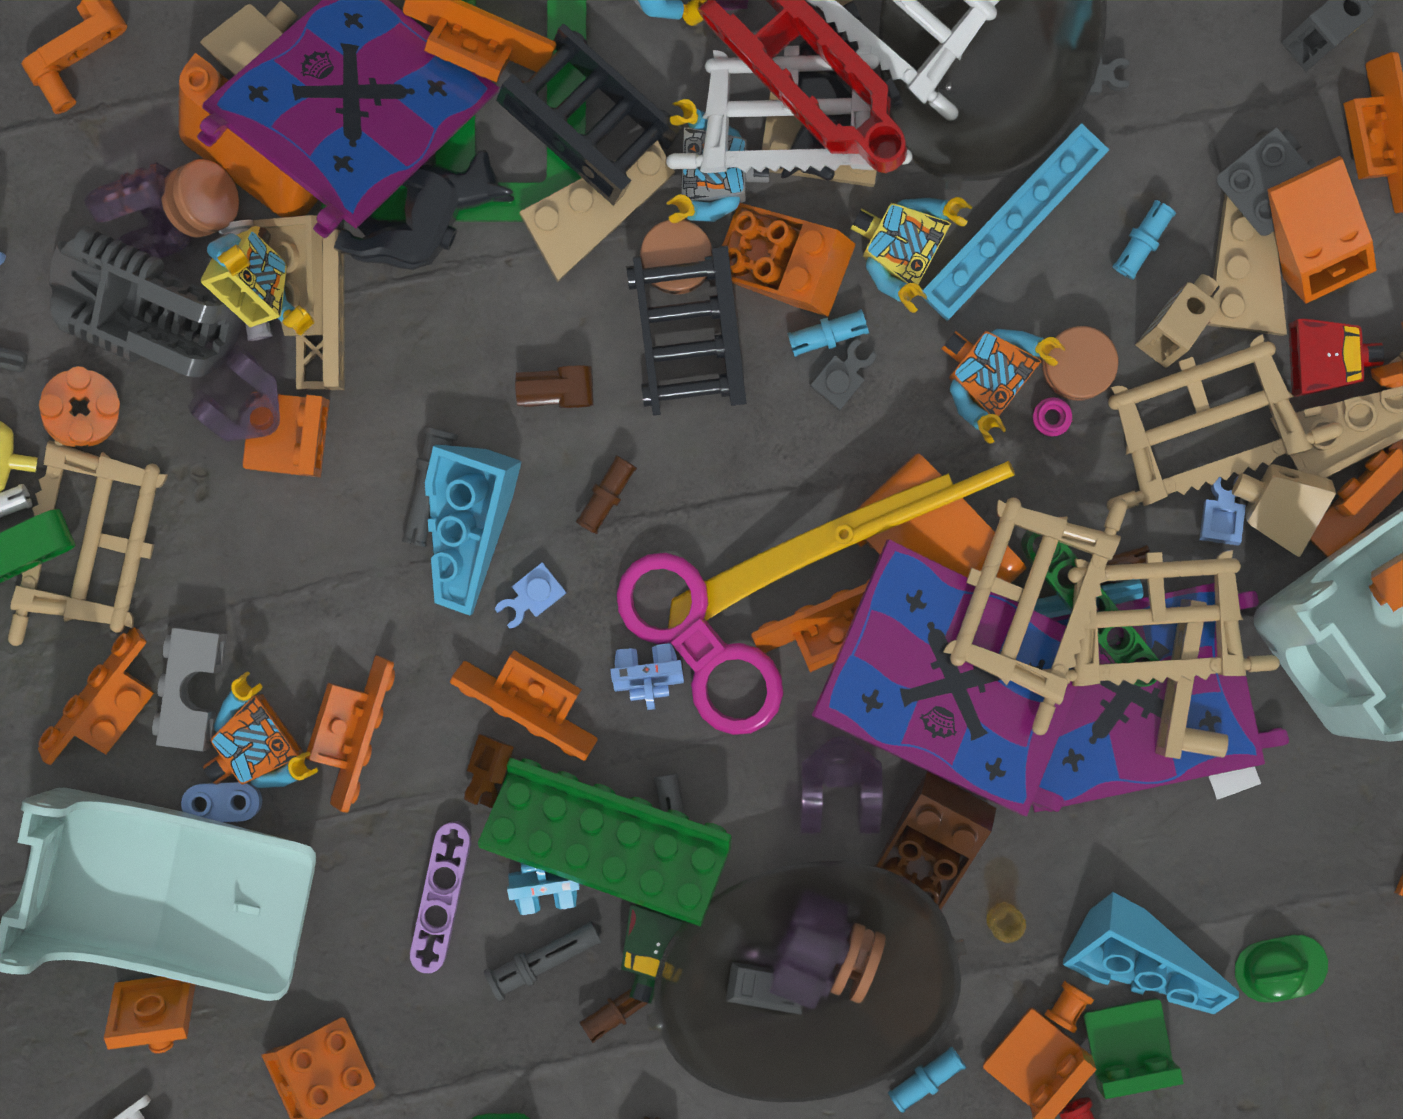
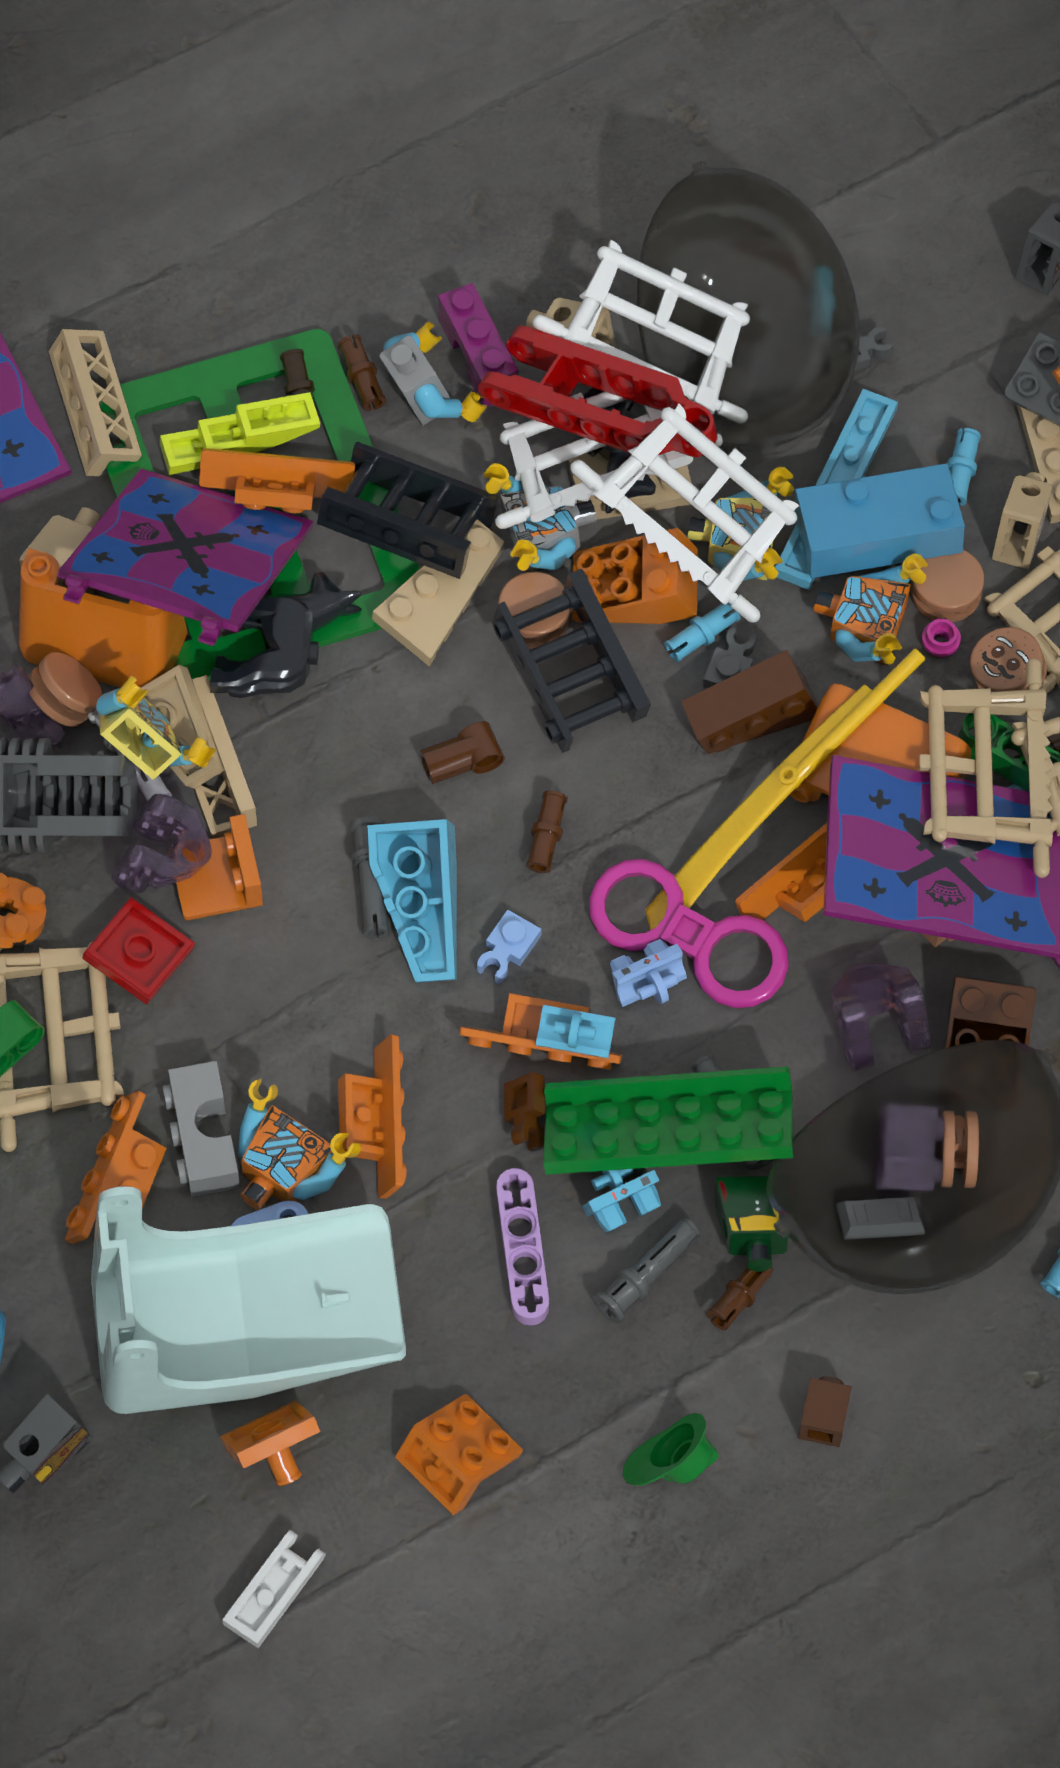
camera: 25 degrees left, 25 degrees down
(189, 489) = (138, 951): none -> red tile
(552, 723) = (575, 1031): none -> medium azure hips
(825, 163) = (645, 456): none -> white piece
(843, 434) = (751, 704): none -> reddish brown wedge
(1037, 286) = (879, 520): none -> dark azure brick
(1102, 472) = (1002, 657): none -> nougat head

